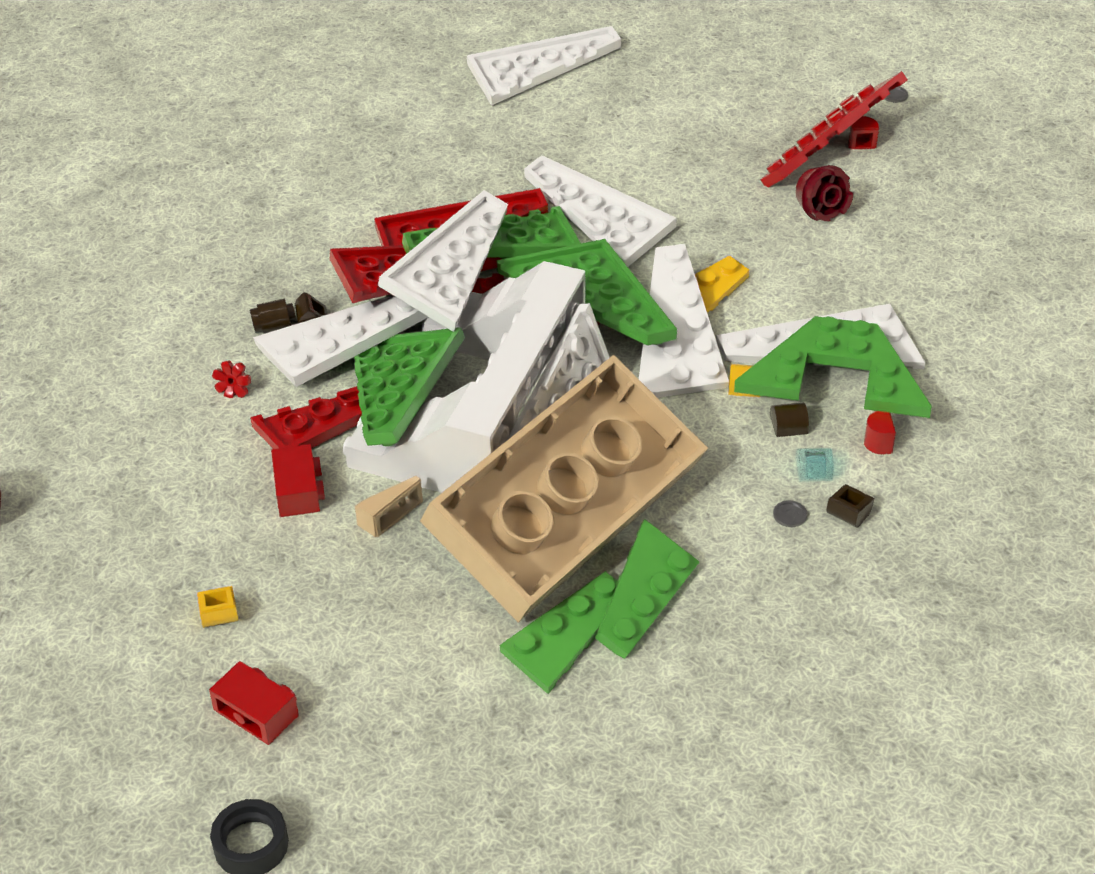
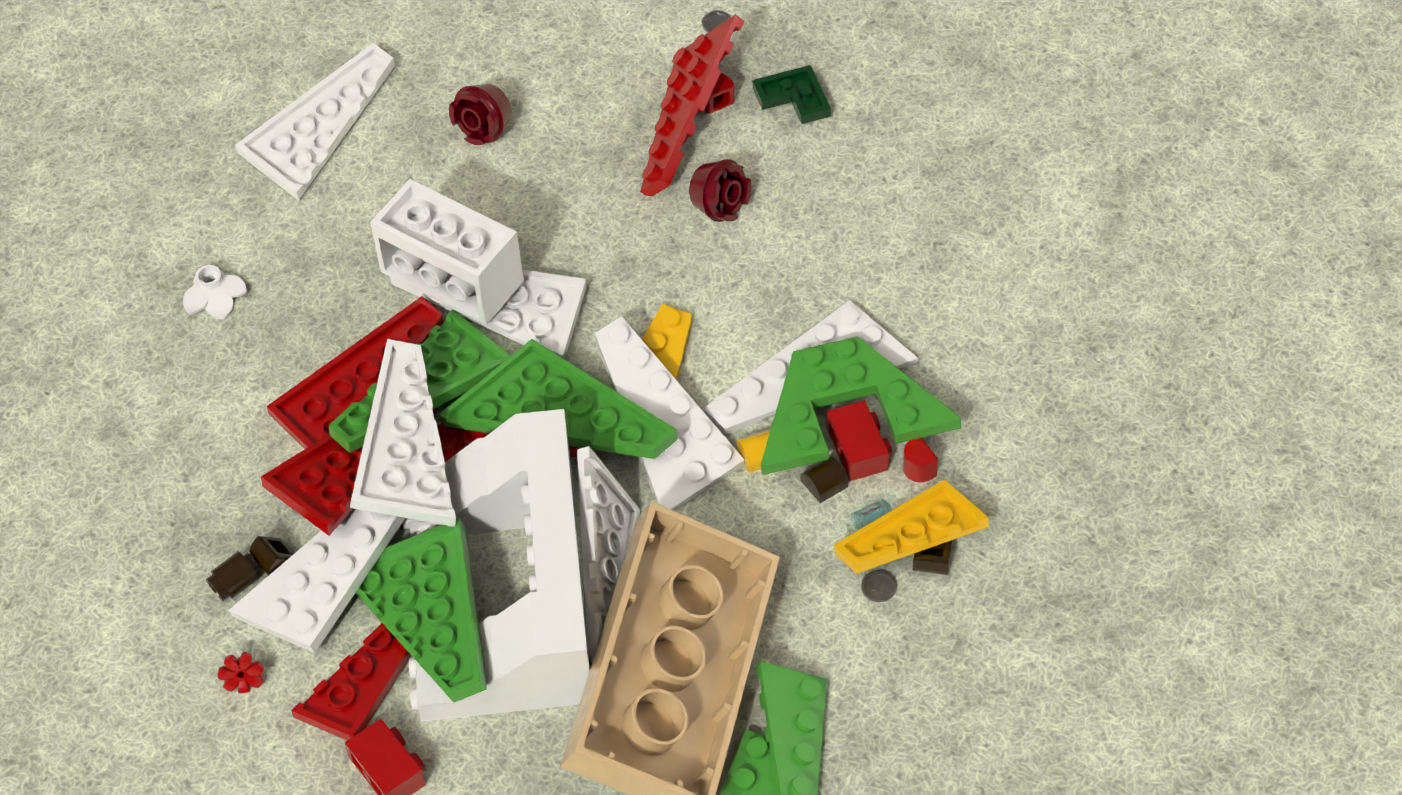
camera: 25 degrees left, 10 degrees up
(388, 139) = (214, 296): none -> white plate
(389, 506) = (494, 758): tan slope -> none
(571, 153) = (447, 251): none -> white brick
(663, 87) = (480, 112): none -> dark red cone
(835, 400) = (858, 440): none -> red brick
(848, 473) = (916, 525): none -> yellow wing
(934, 151) = (794, 86): none -> dark green plate

